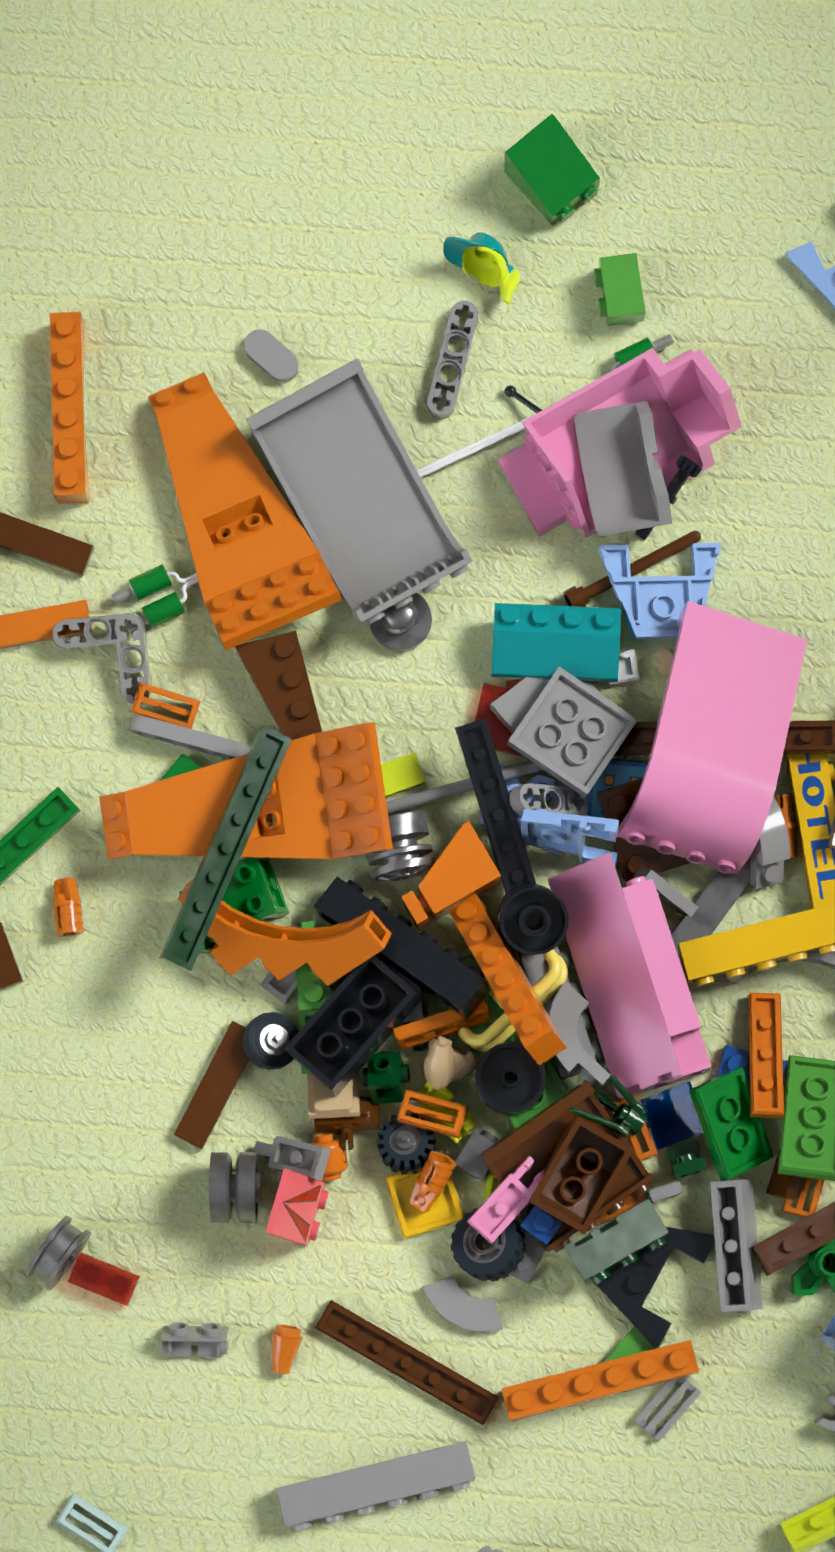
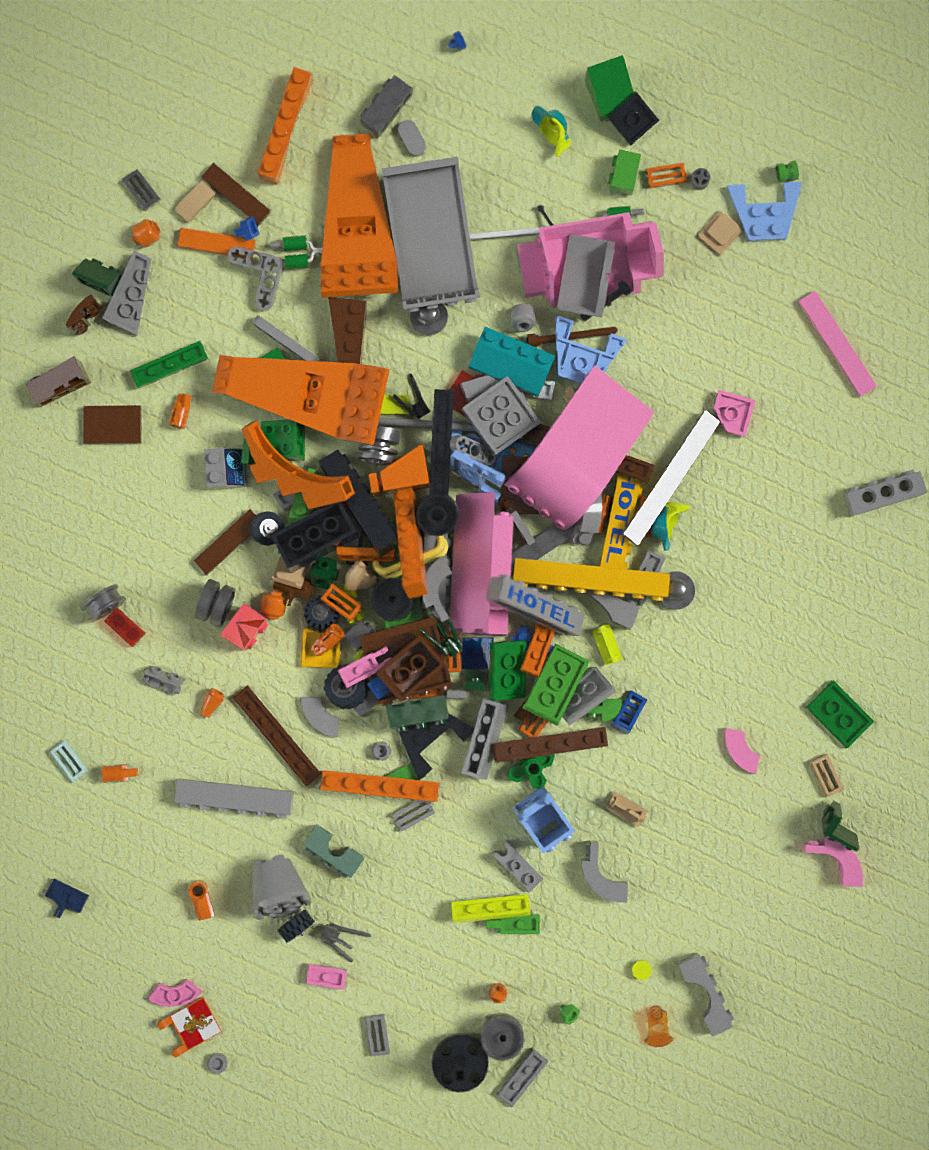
camera: 15 degrees right, 5 degrees up
(68, 586) = (248, 228): none -> blue tile
(139, 697) = (290, 317): orange tile -> none
(165, 983) = (225, 468): none -> slope
(178, 1515) = (118, 773): none -> orange hinge
(213, 320) = (386, 105): none -> flat silver brick
(225, 848) = (278, 410): dark green plate -> none
(291, 182) = (458, 41): none -> blue tile
(295, 1156) = (255, 598): light grey hinge -> none
(440, 766) = (419, 408): none -> black plant
(450, 359) = (513, 177): light grey beam -> none
(547, 568) = (522, 317): none -> light grey head
(571, 1325) = (386, 751): none -> light grey plate
(592, 1523) = (318, 844): none -> sand green arch
(602, 203) = (632, 118): none -> black tile
(663, 284) = (650, 178): none -> orange tile
(738, 1005) = (535, 605): none -> light grey brick
(740, 251) = (702, 175): none -> flat silver wheel
(801, 328) = (720, 233): none -> tan piece

